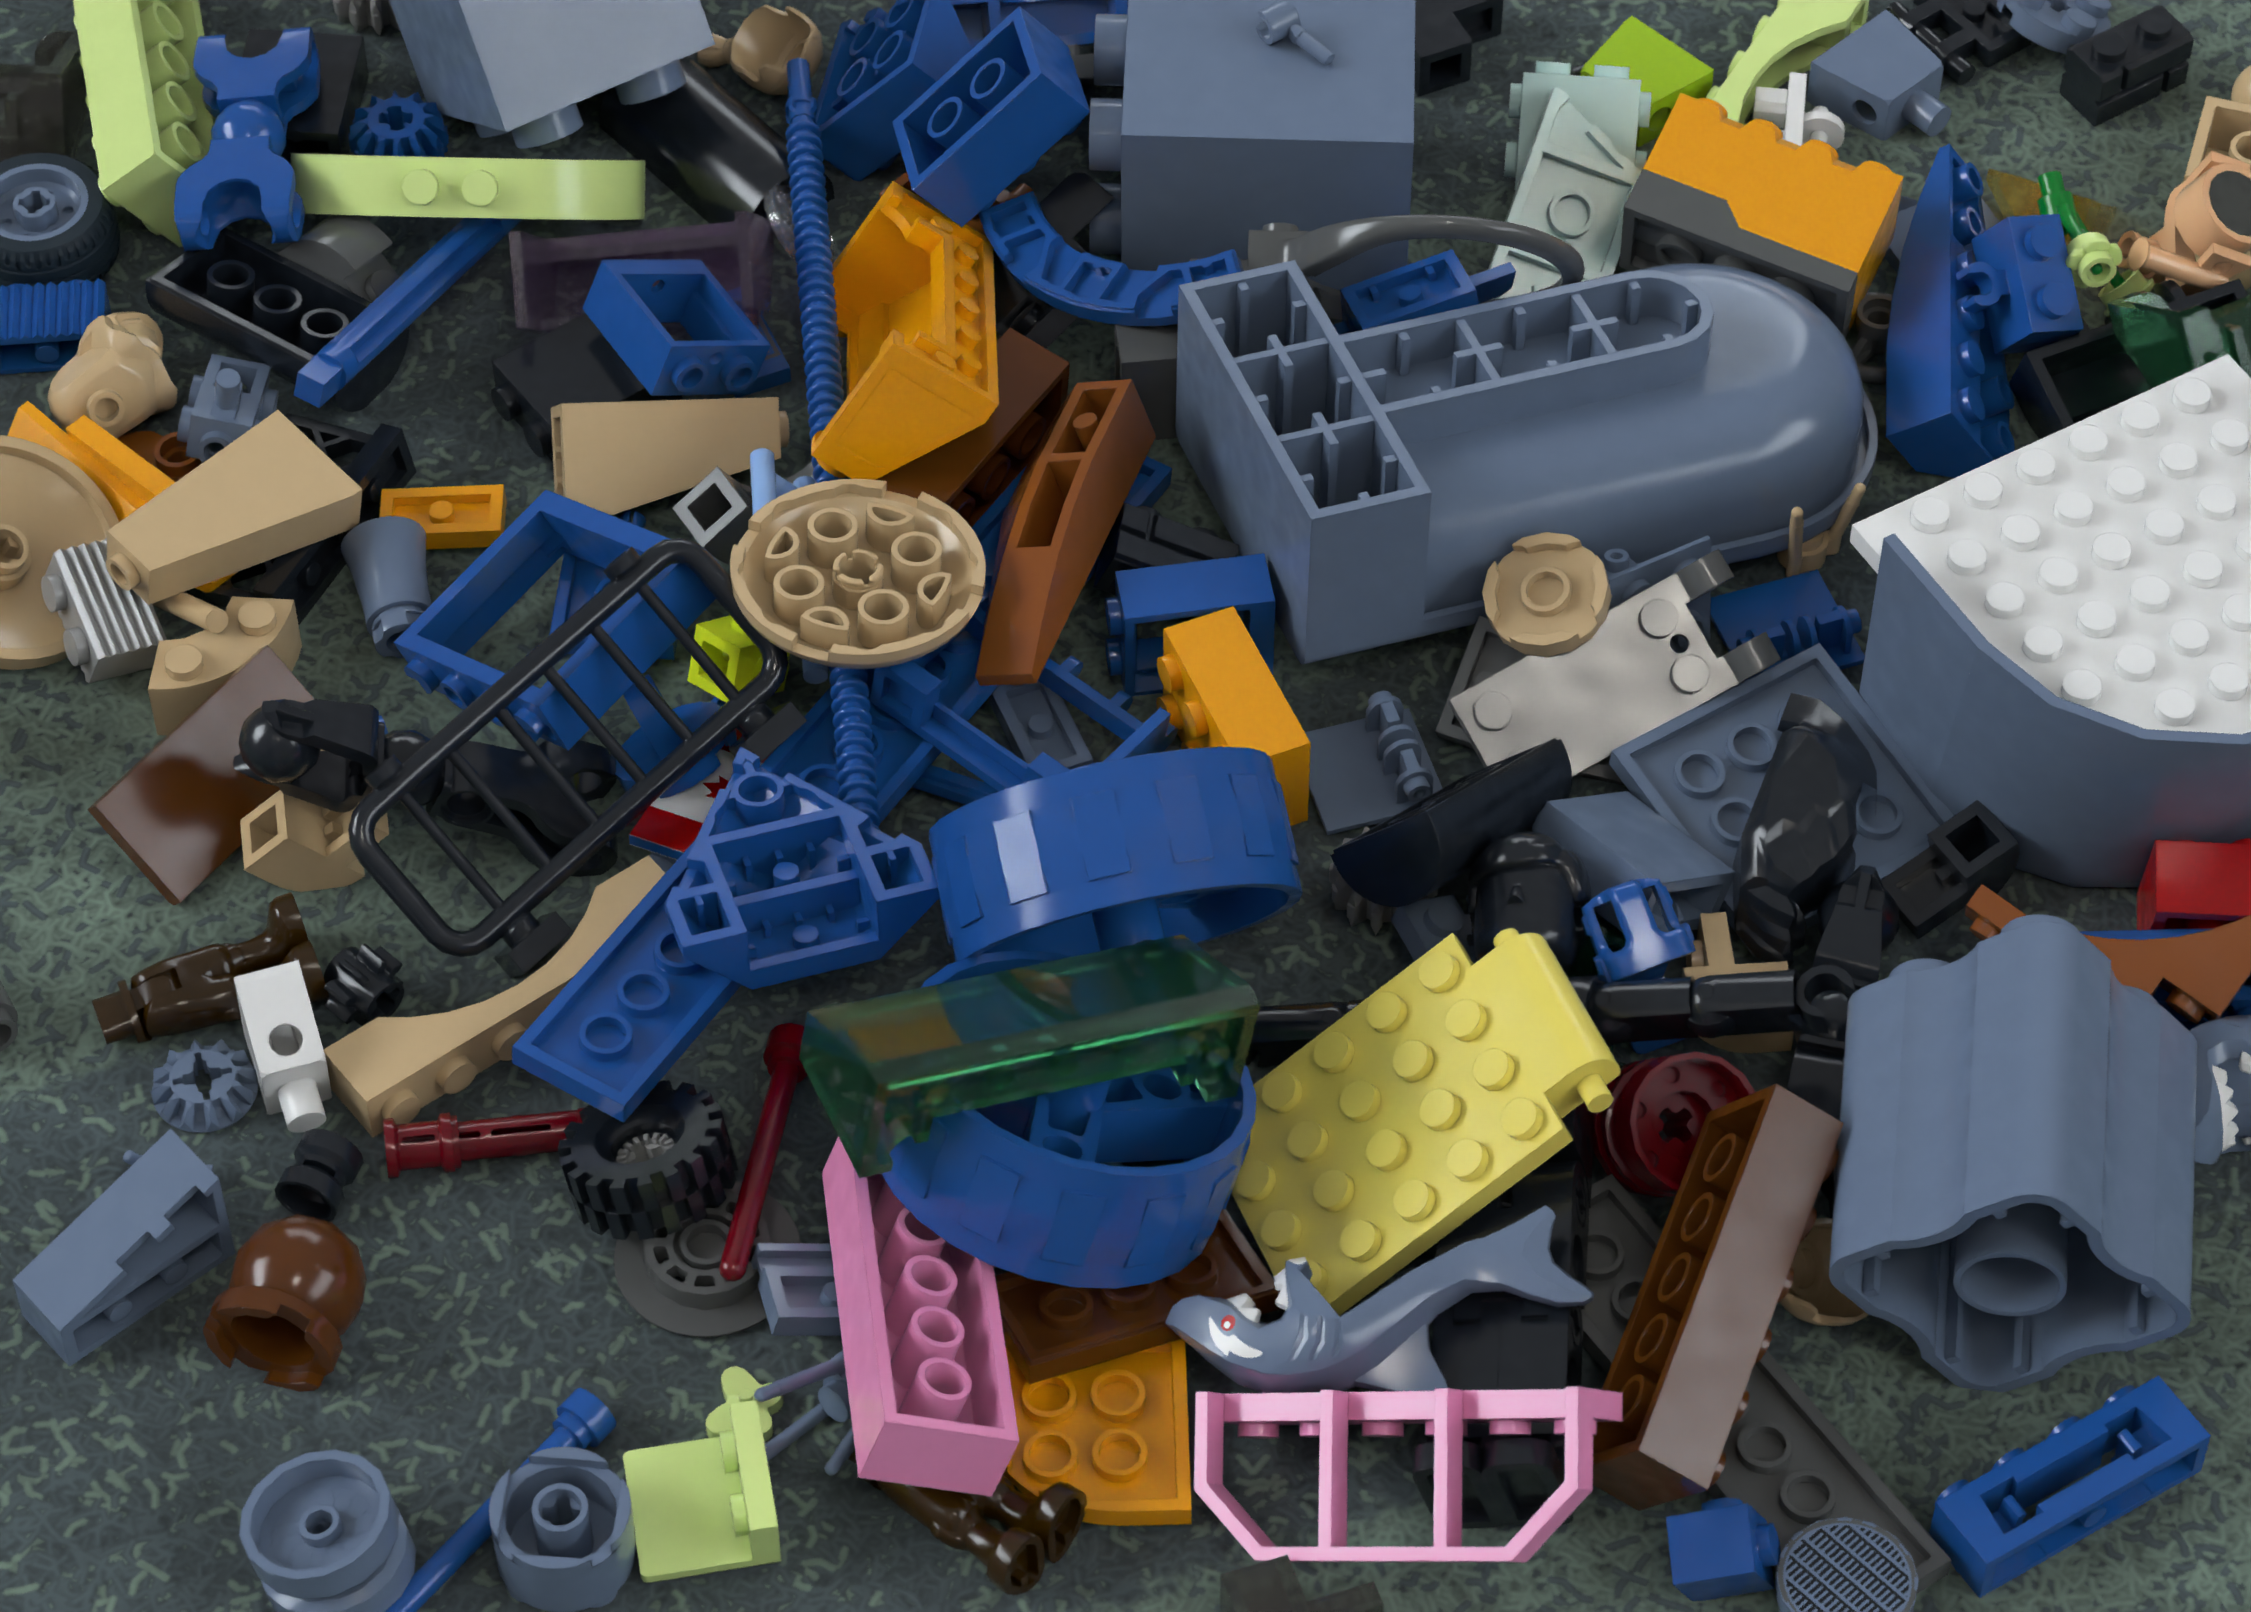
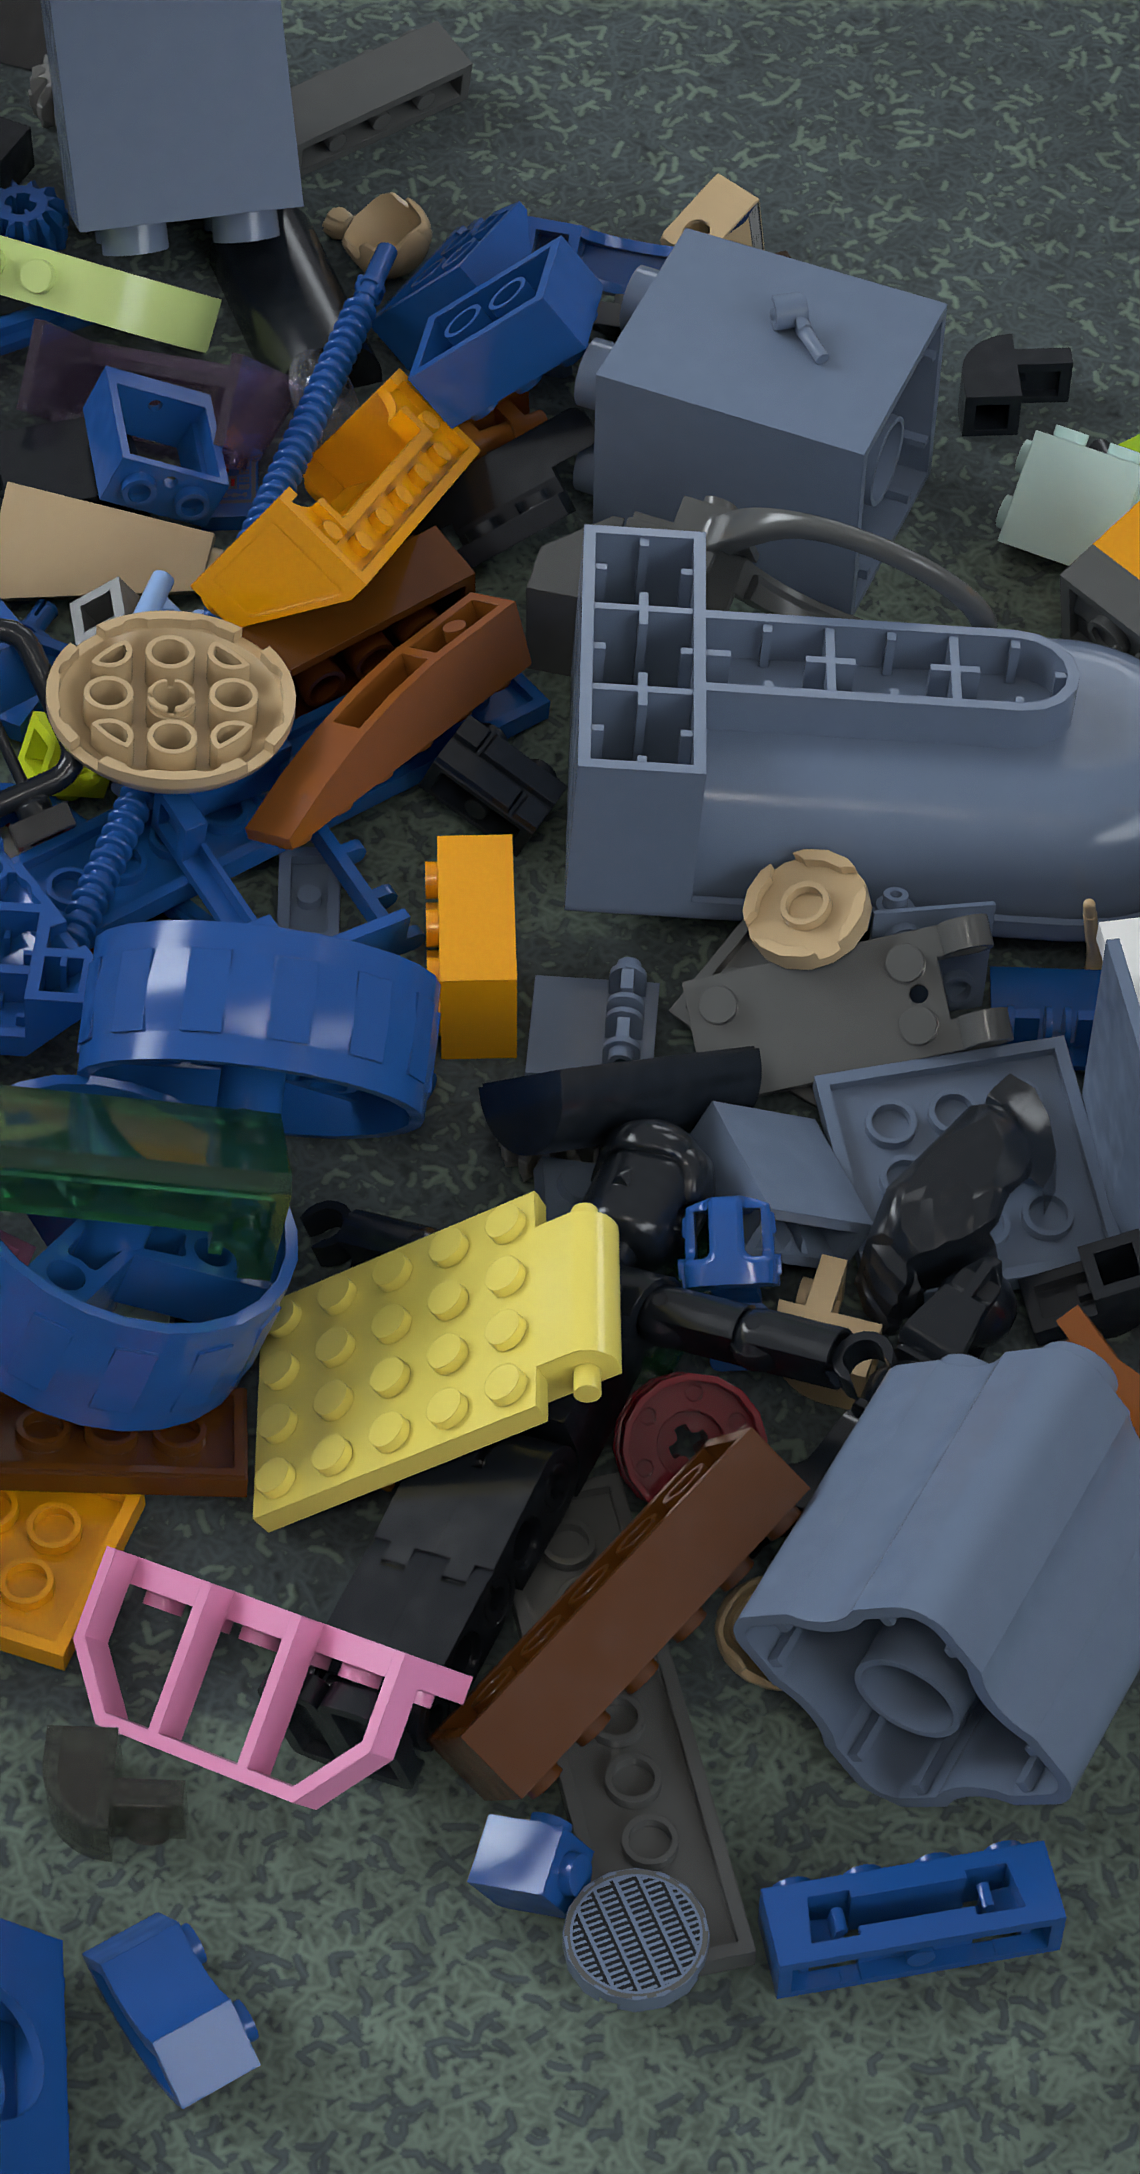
camera: 20 degrees right, 0 degrees up
(1084, 282) = (529, 505): blue tile -> none
(1179, 593) = (488, 810): blue window -> none
(1384, 1338) = (302, 1551): sand blue piece -> none
(1419, 291) = (849, 597): blue plate -> none
(1571, 190) = (1028, 552): light aqua wing -> none

